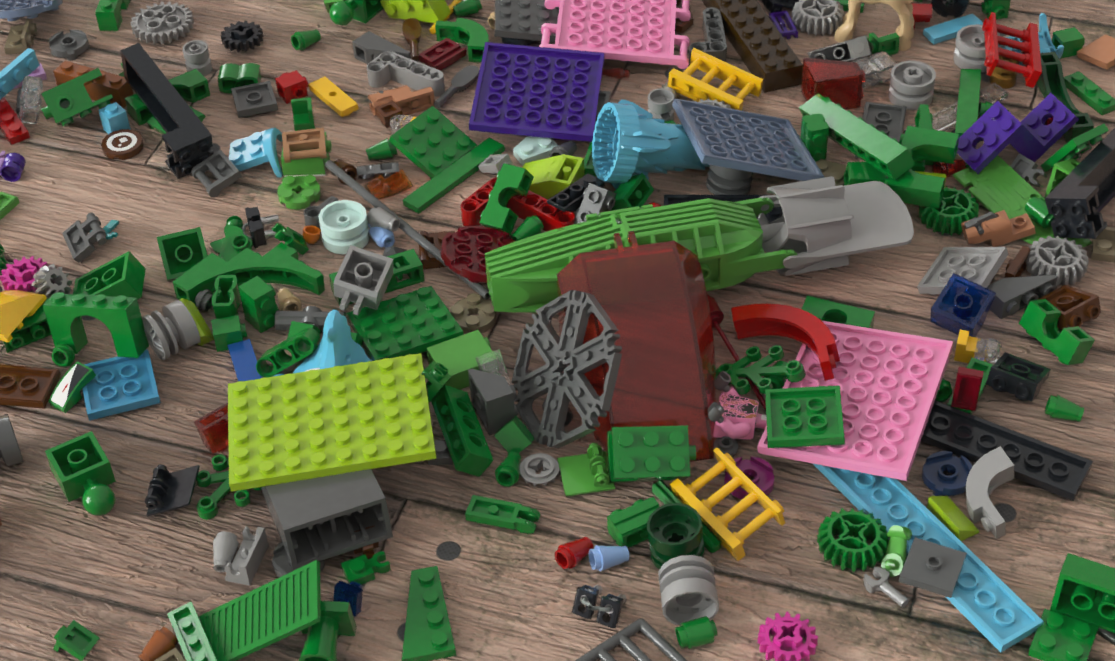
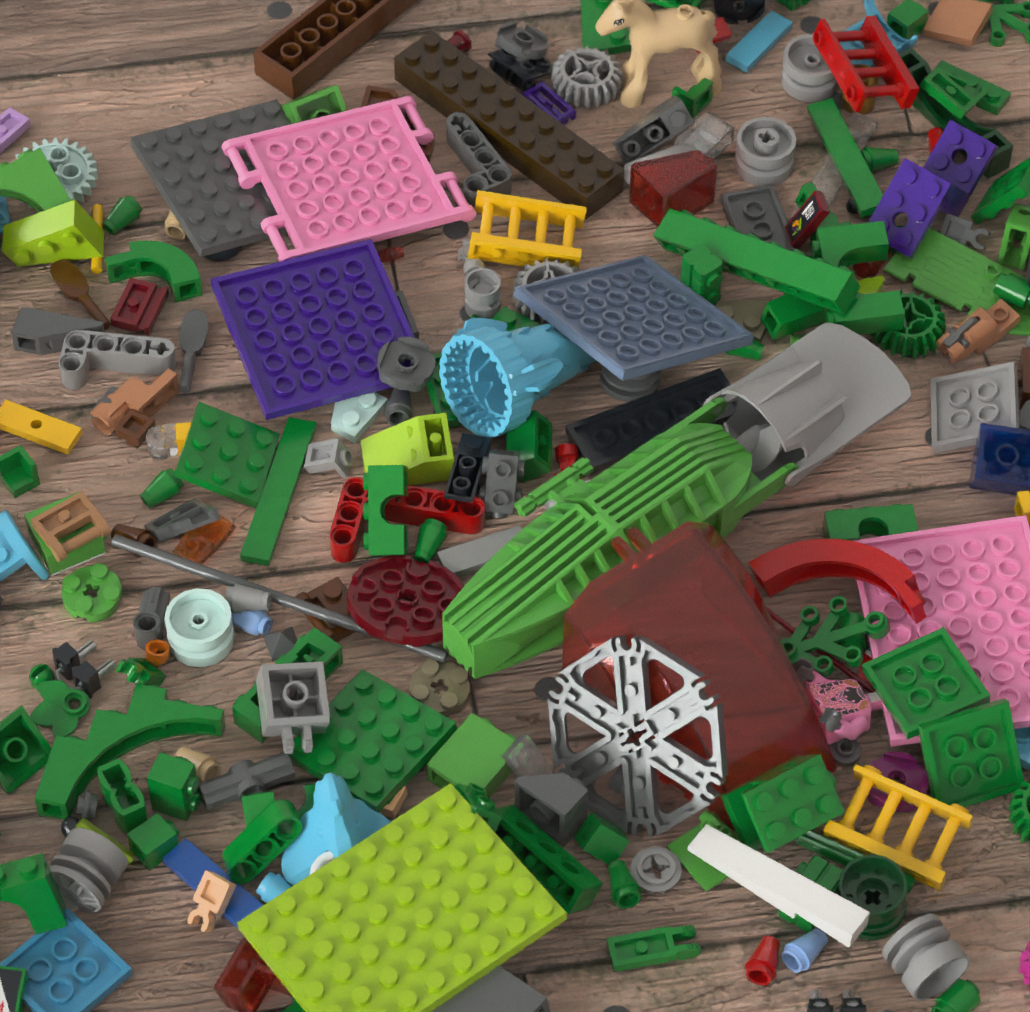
camera: 30 degrees left, 10 degrees up
(237, 371) = (213, 897): none -> light nougat plate
(576, 133) = (402, 377): none -> dark grey plate
(611, 504) = (781, 885): none -> white slope
(810, 474) = (972, 754): none -> green plate
(915, 120) = (807, 219): none -> tile
(1071, 86) = (953, 92): none -> green wing

